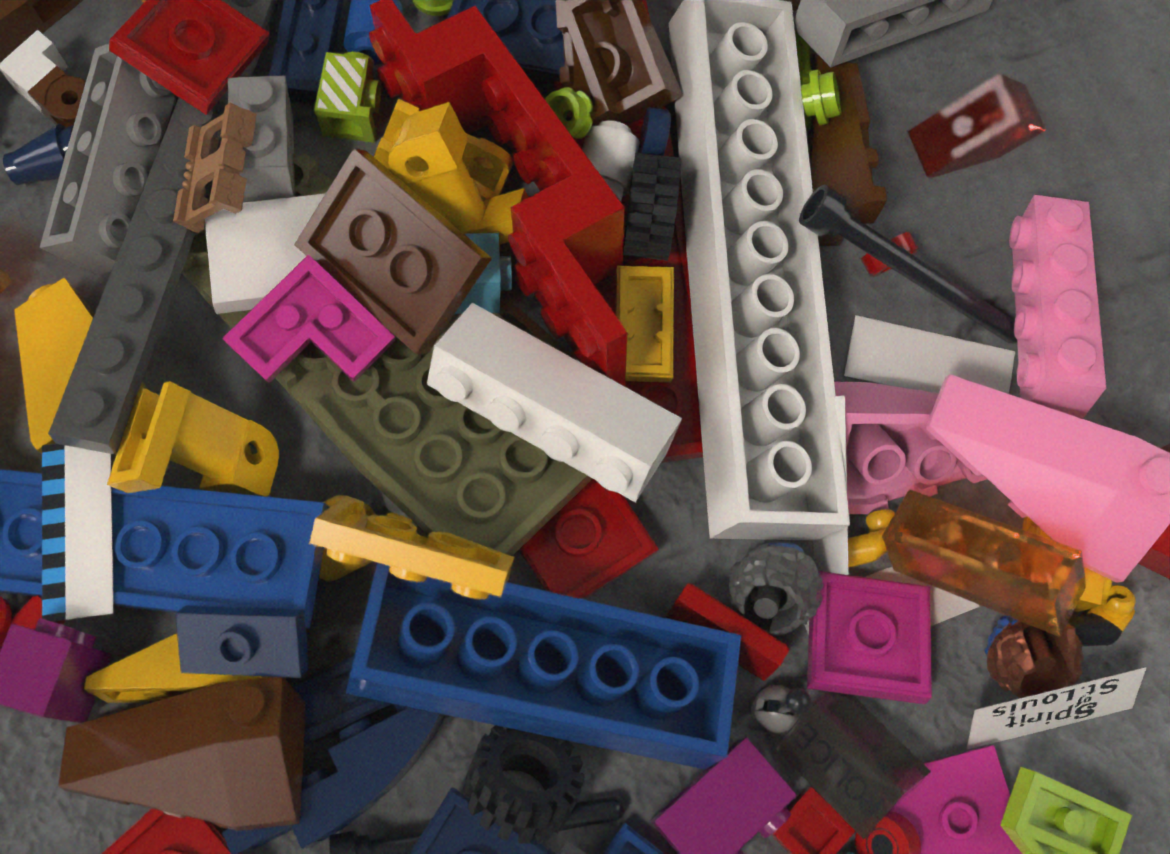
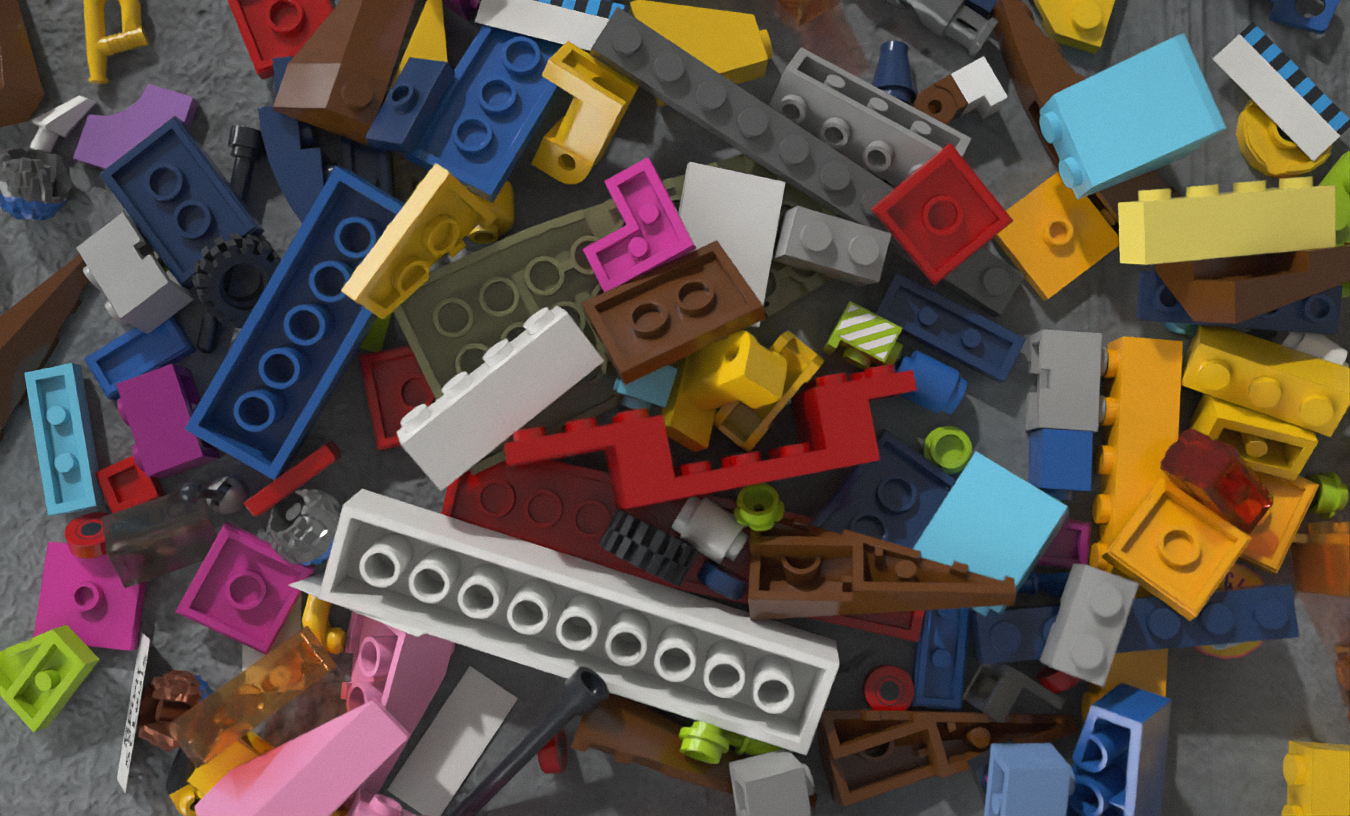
camera: 120 degrees right, 10 degrees up
(218, 165) = (801, 202): medium nougat piece -> none
(646, 311) = (558, 506): yellow plate -> none

